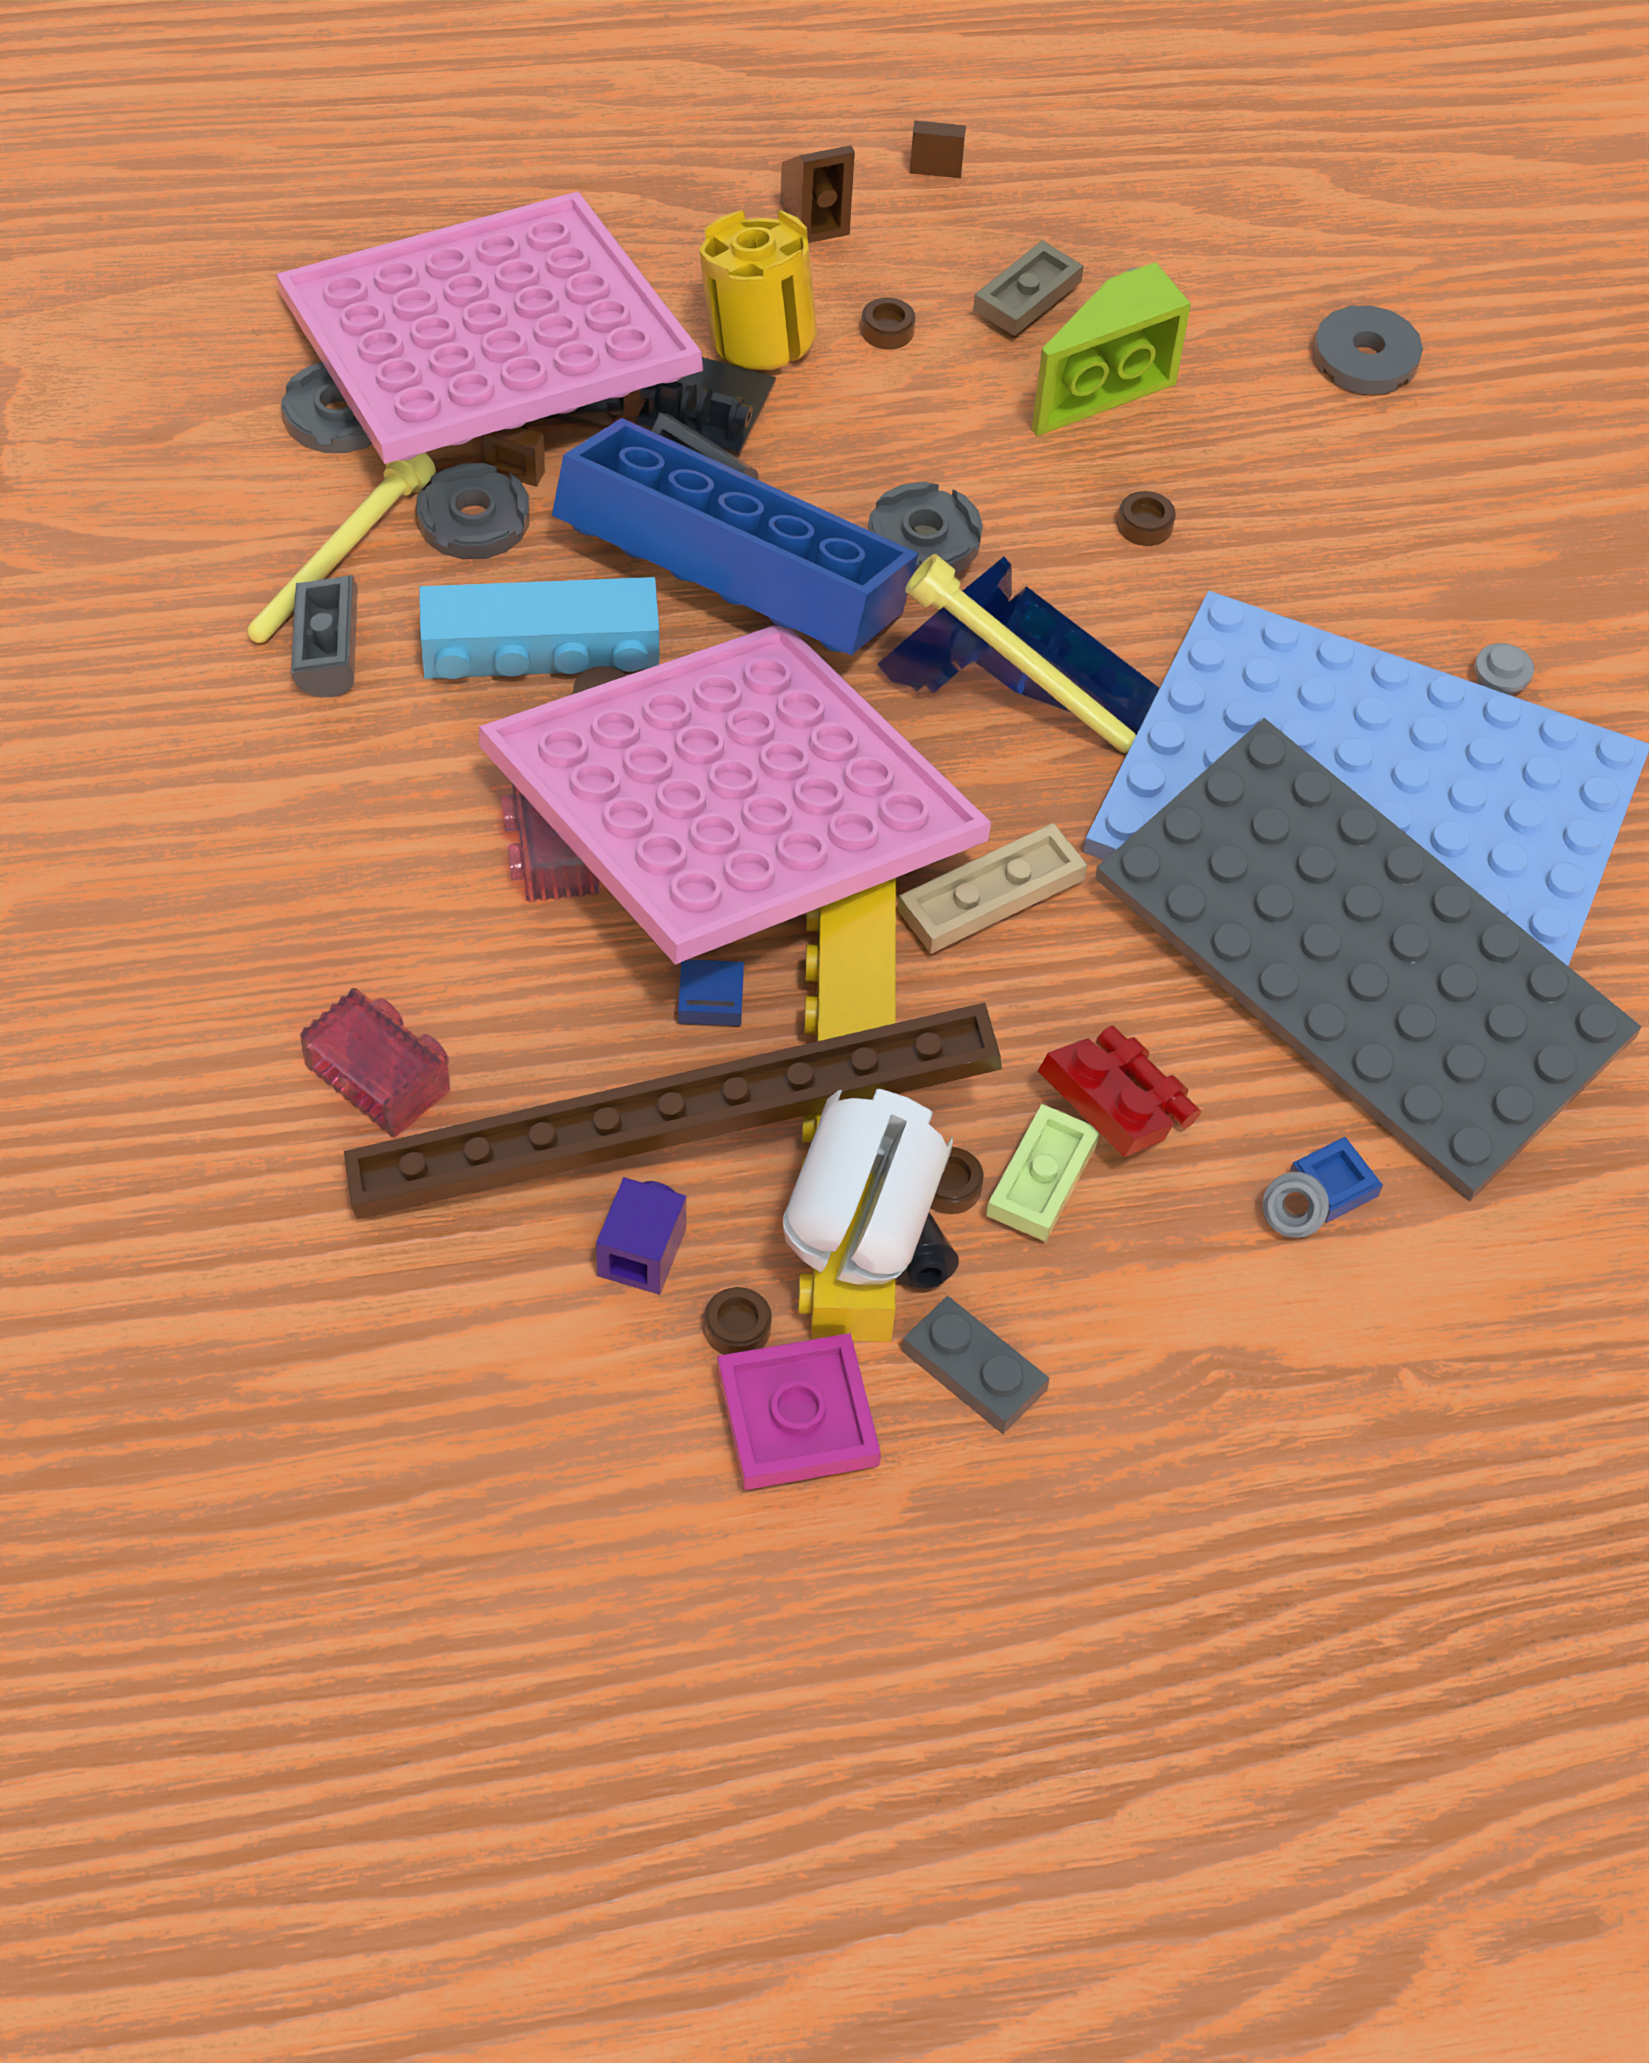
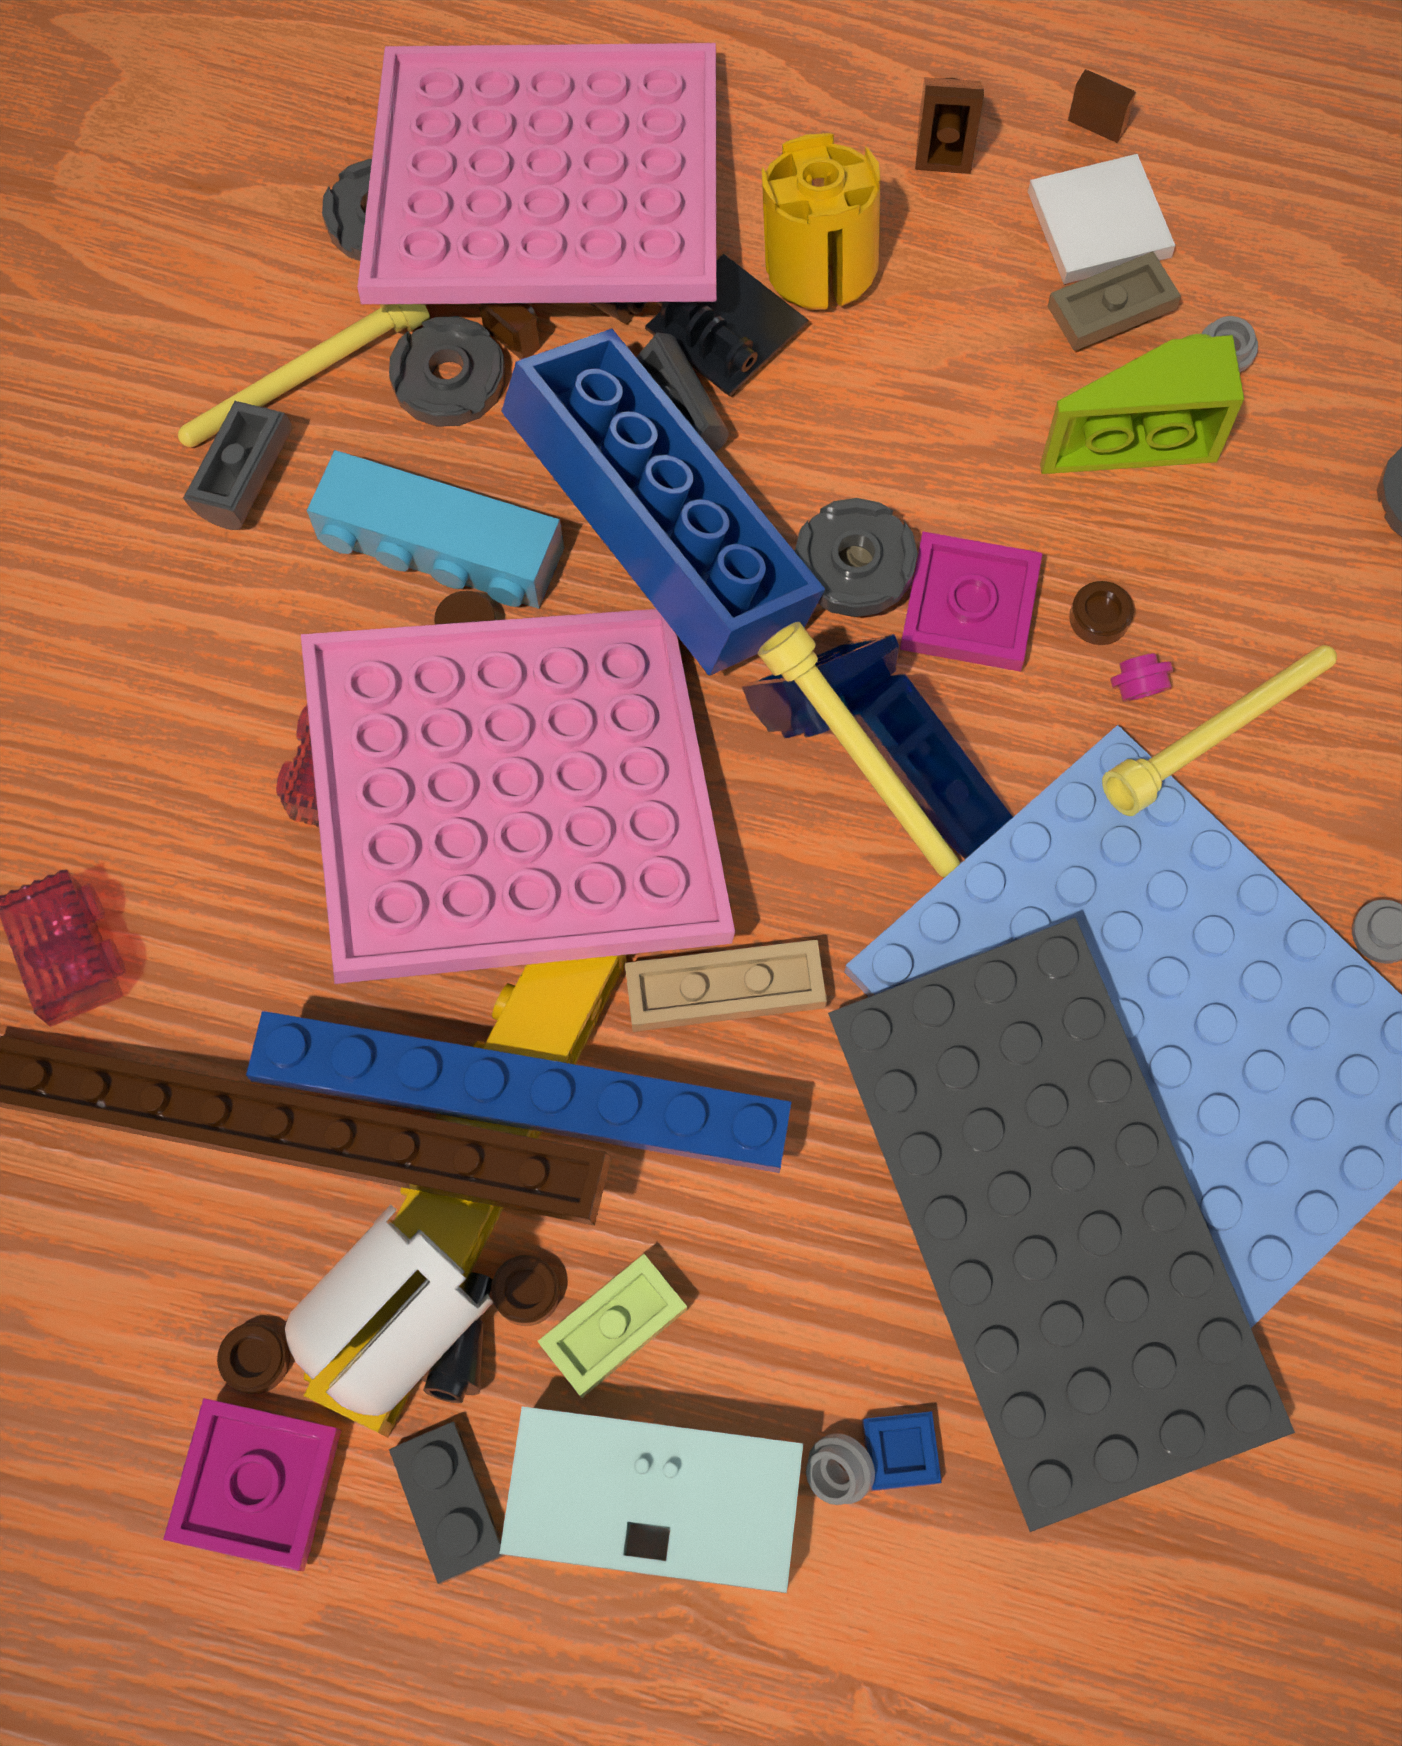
camera: 30 degrees right, 15 degrees up
(641, 1235) = (204, 1233): dark purple brick -> none
(711, 992) = (405, 999): blue tile -> none
(758, 1023) = (520, 1091): none -> blue plate
(888, 323) = (953, 293): reddish brown tile -> none
(978, 232) = (1100, 217): none -> white tile
(1042, 536) = (971, 601): none -> dark pink plate
(1100, 1089) = (712, 1273): red plate -> none
(1156, 1281) = (652, 1499): none -> light aqua brick
(1209, 549) = (1142, 677): none -> dark pink plate
(1253, 615) = (1135, 784): none -> light yellow piece

